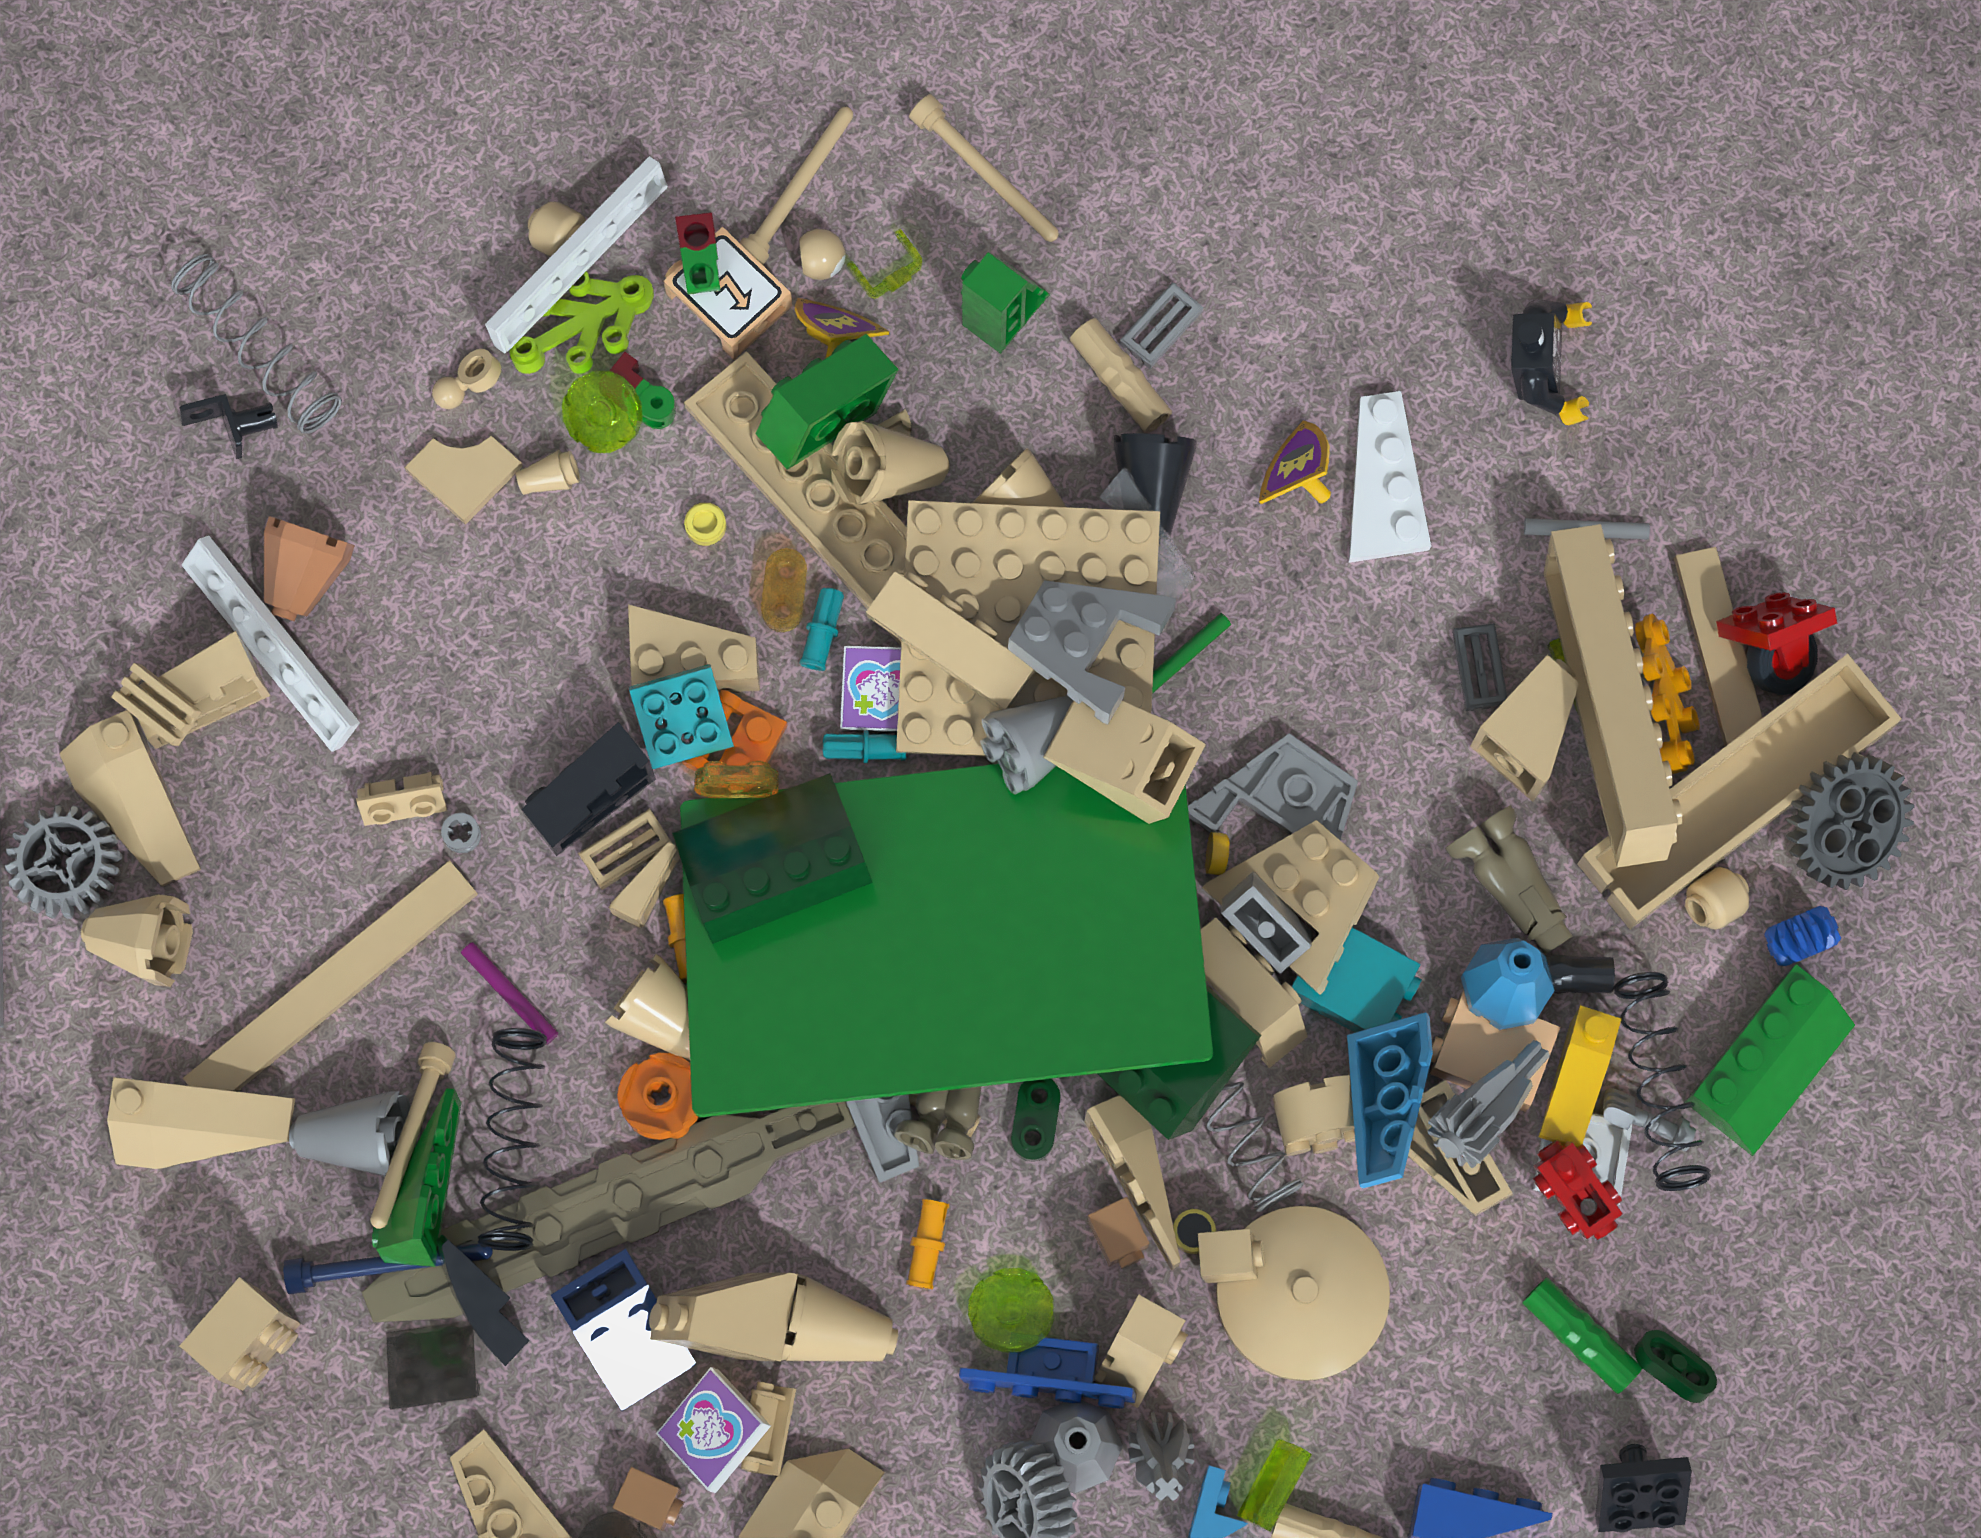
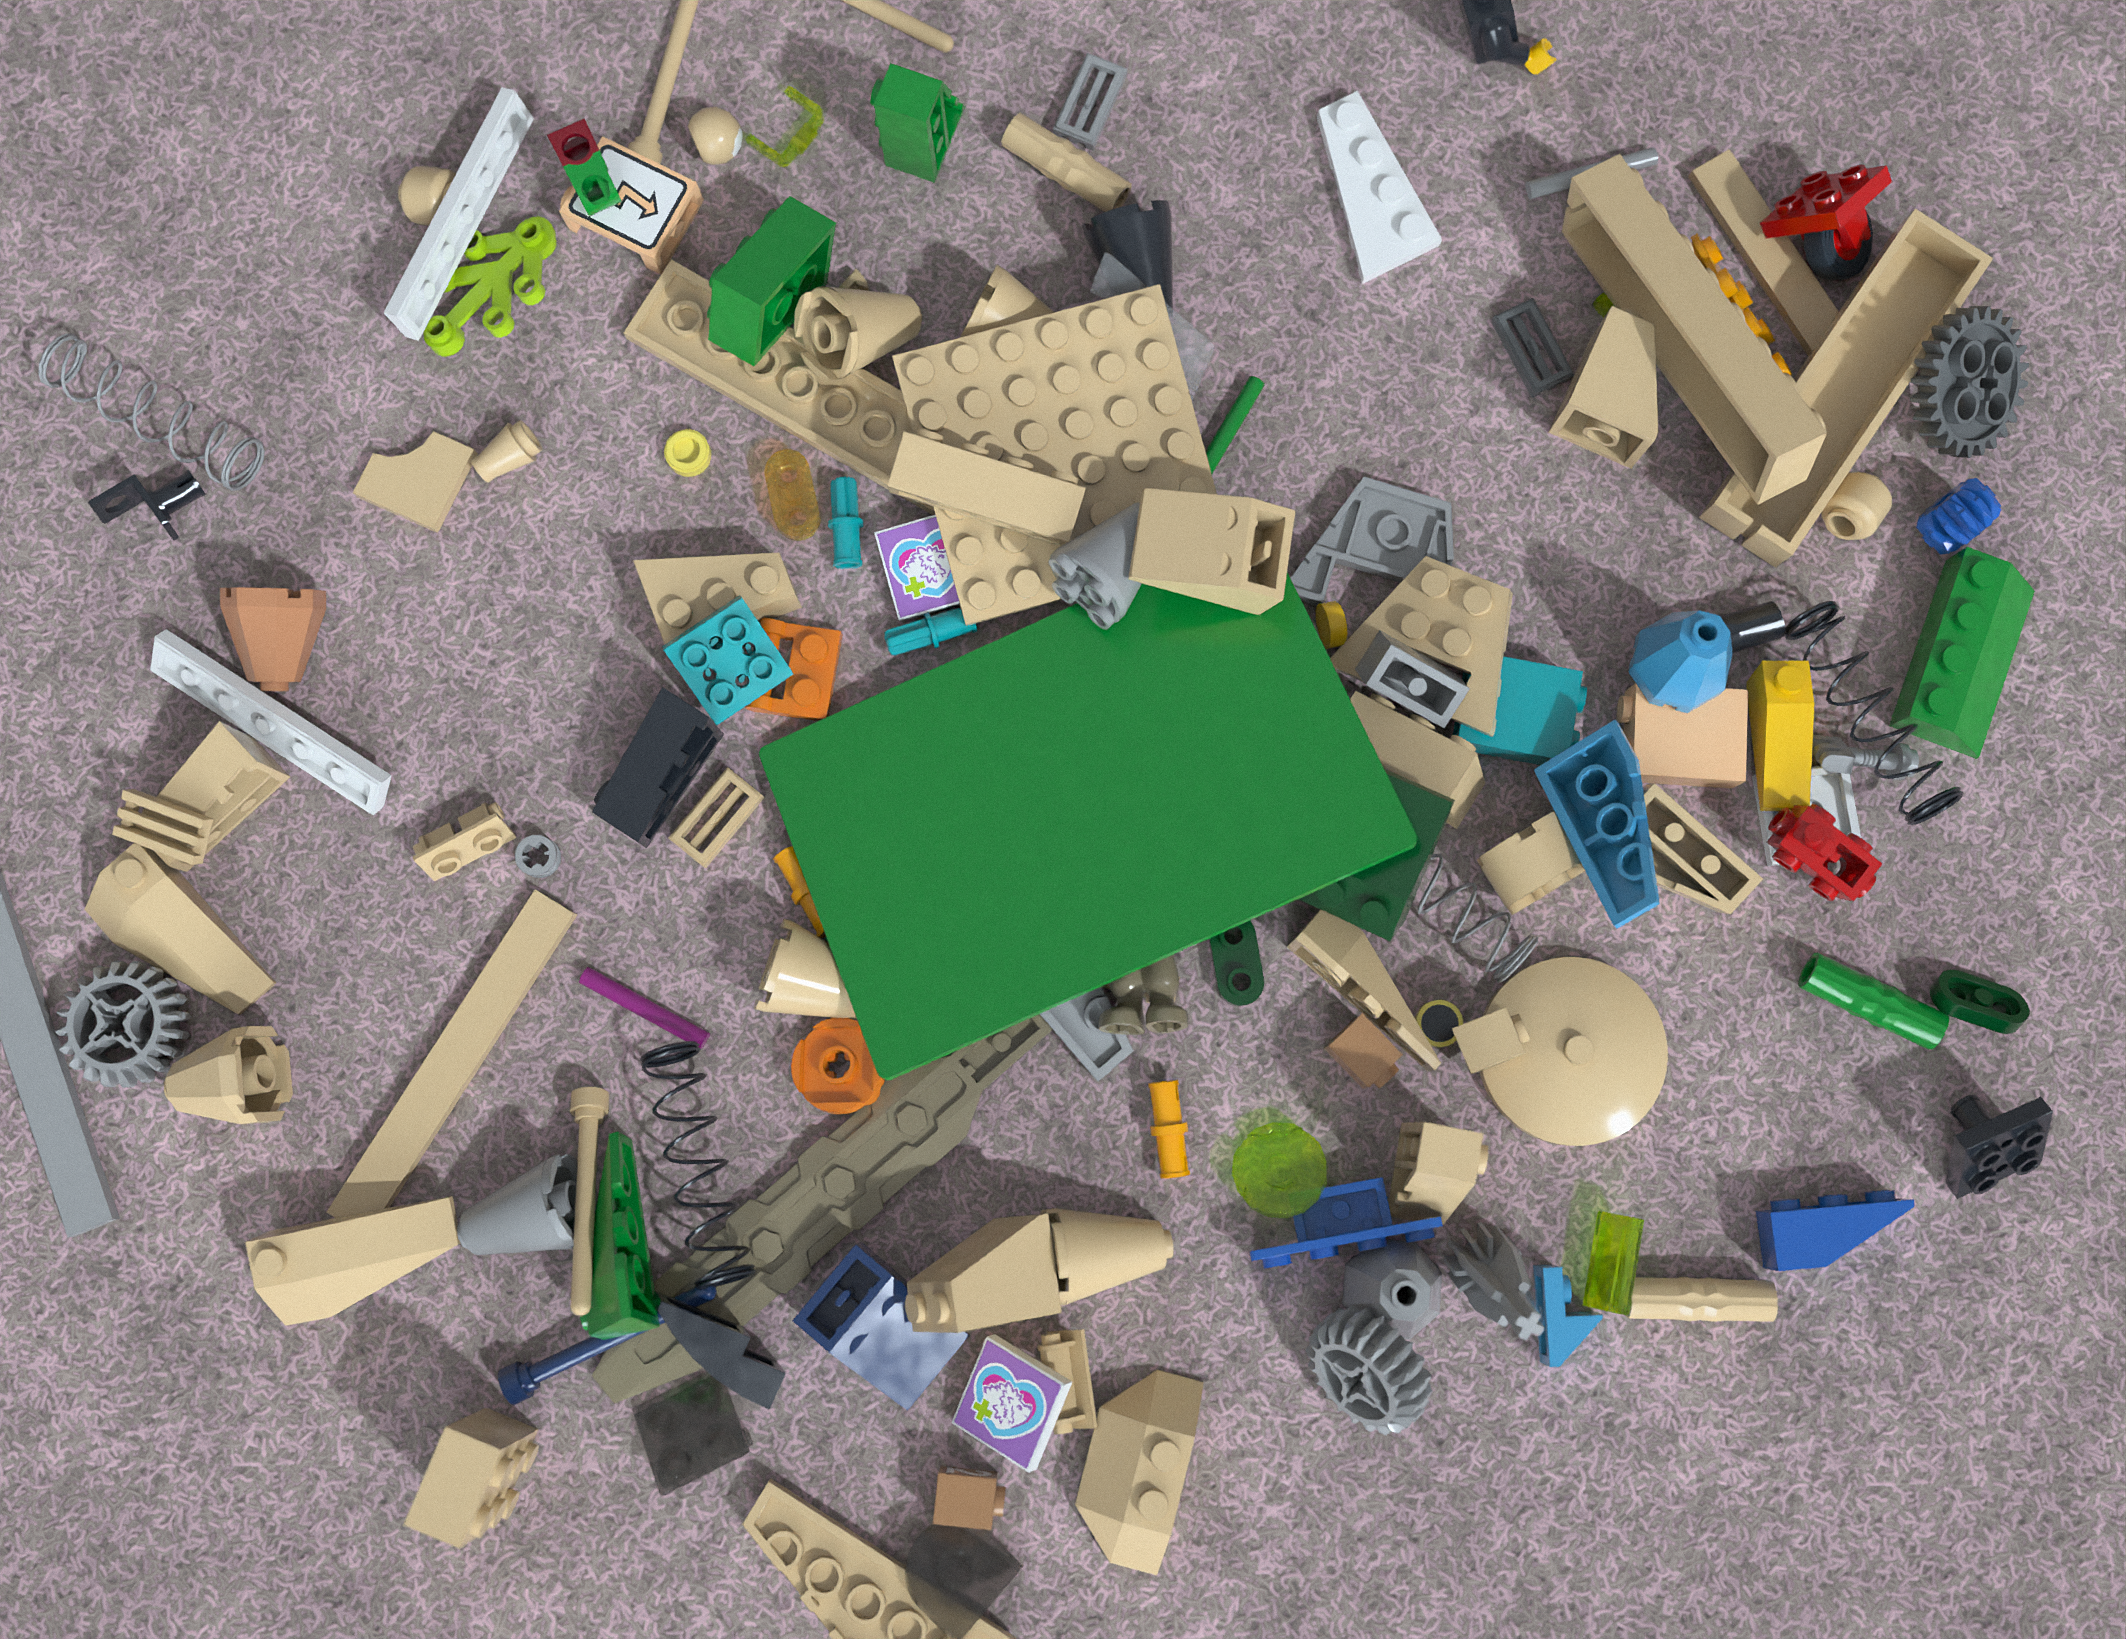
camera: 15 degrees left, 5 degrees up
(476, 372) = (395, 371): tan plate -> none
(602, 411) = (540, 368): clear neon green tile -> none
(641, 894) = (749, 857): tan slope -> none
(656, 401) = (571, 341): green leg -> none
(736, 781) = (807, 710): clear yellow plate -> none
(771, 858) = (872, 779): dark green slope -> none
(833, 324) = (749, 205): shield -> none
(1069, 628) = (1107, 438): light grey wing -> none
(1299, 463) = (1279, 195): shield -> none
(1473, 1120) = (1711, 800): light grey piece -> none
(1514, 878) = (1642, 551): dark tan piece -> none

